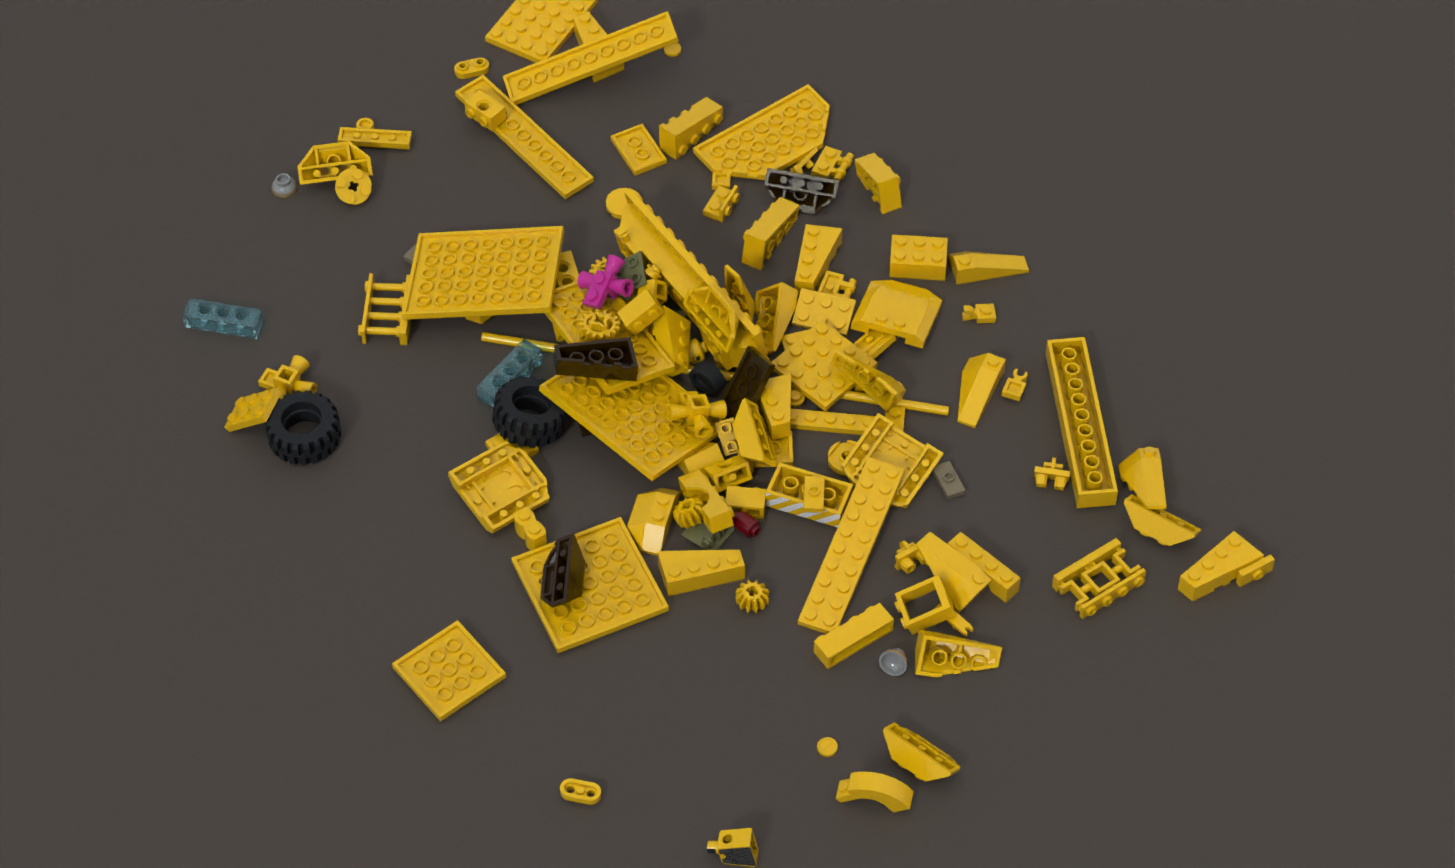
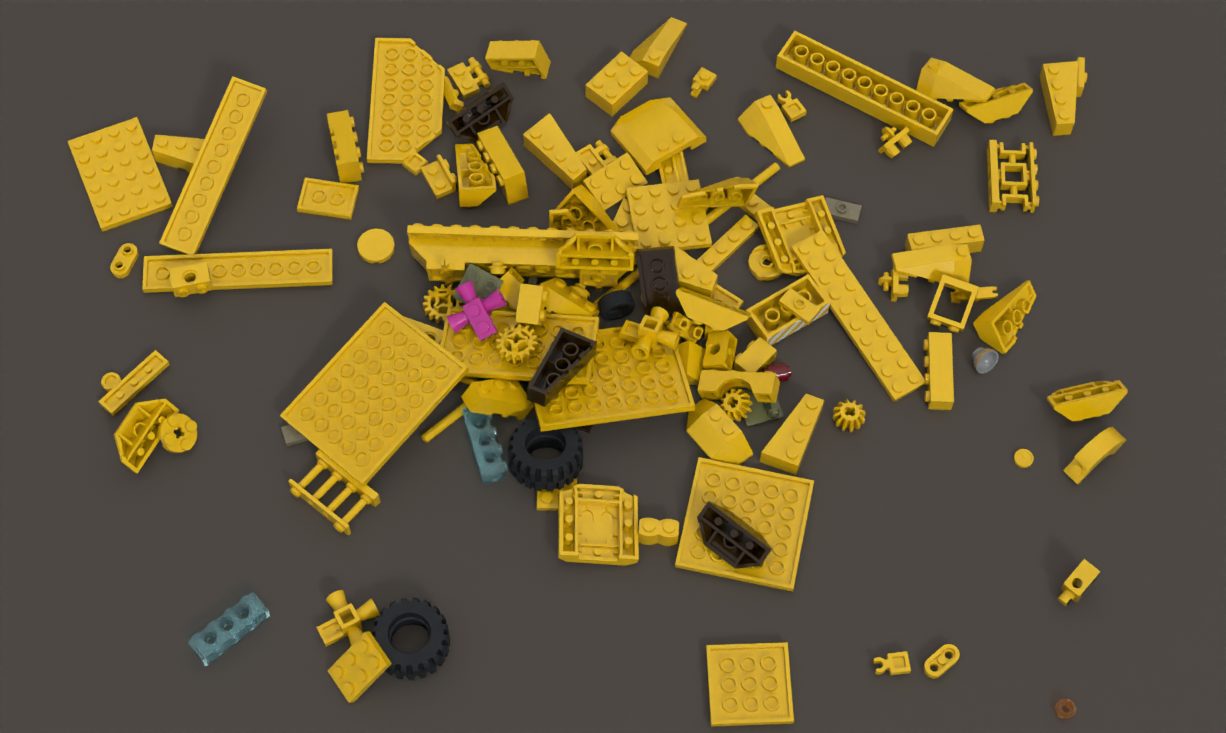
camera: 55 degrees left, 10 degrees up
(284, 186) = (120, 488): light grey piece -> none
(540, 343) = (497, 397): none -> yellow wedge
(550, 760) = (896, 663): none -> yellow plate
(735, 220) = (473, 176): none -> yellow wedge

